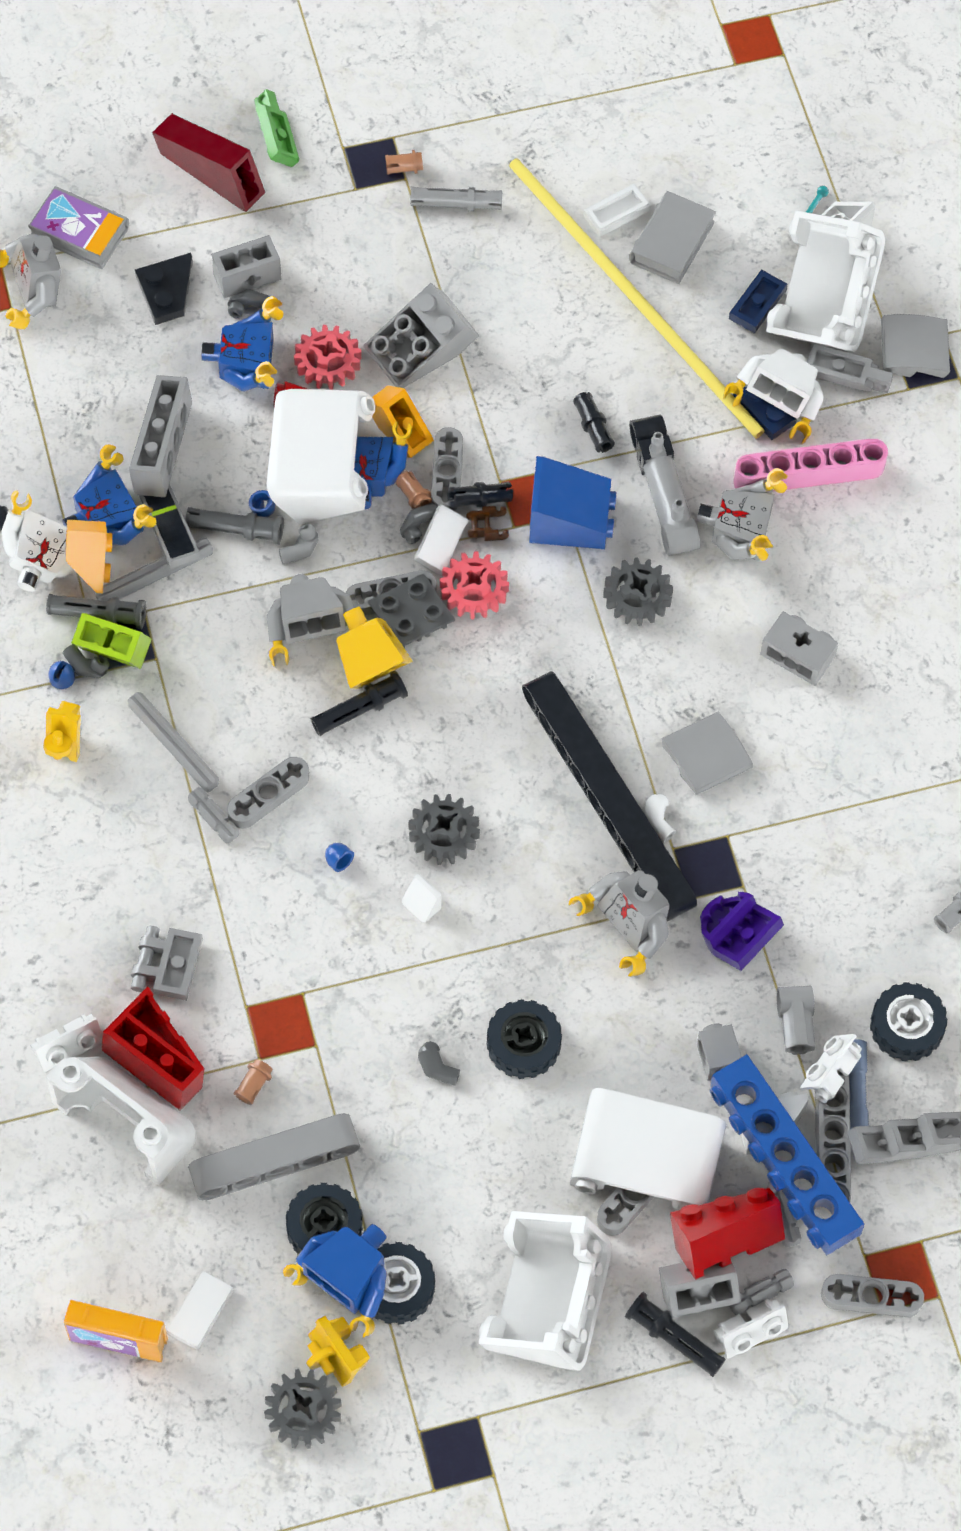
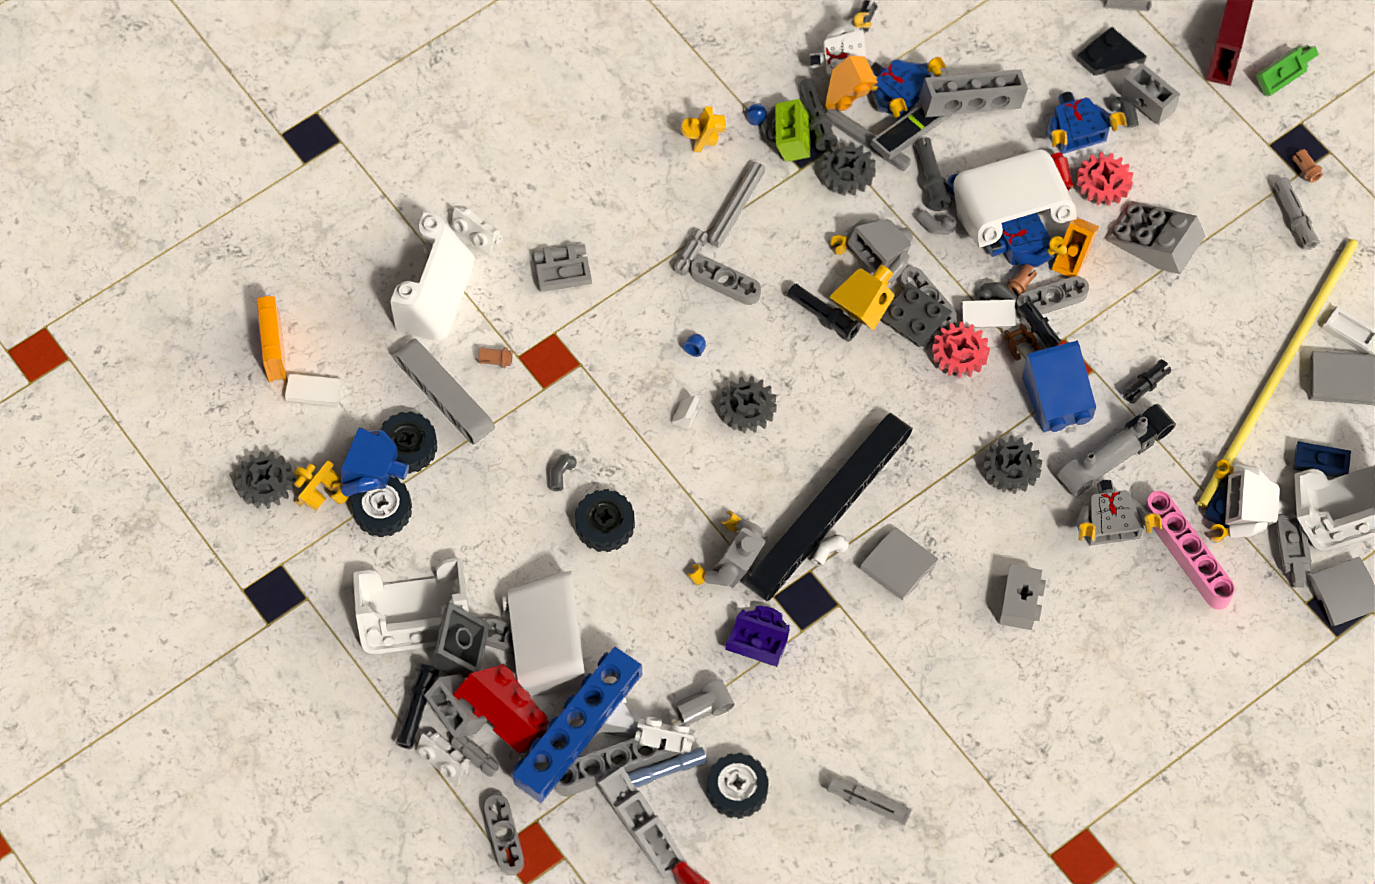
camera: 70 degrees right, 0 degrees up
(153, 1051) = (489, 281): red wedge -> none
(171, 608) = (848, 169): none -> dark grey gear
(627, 1251) = (460, 642): none -> dark grey slope
(717, 1048) = (654, 656): light grey brick -> none

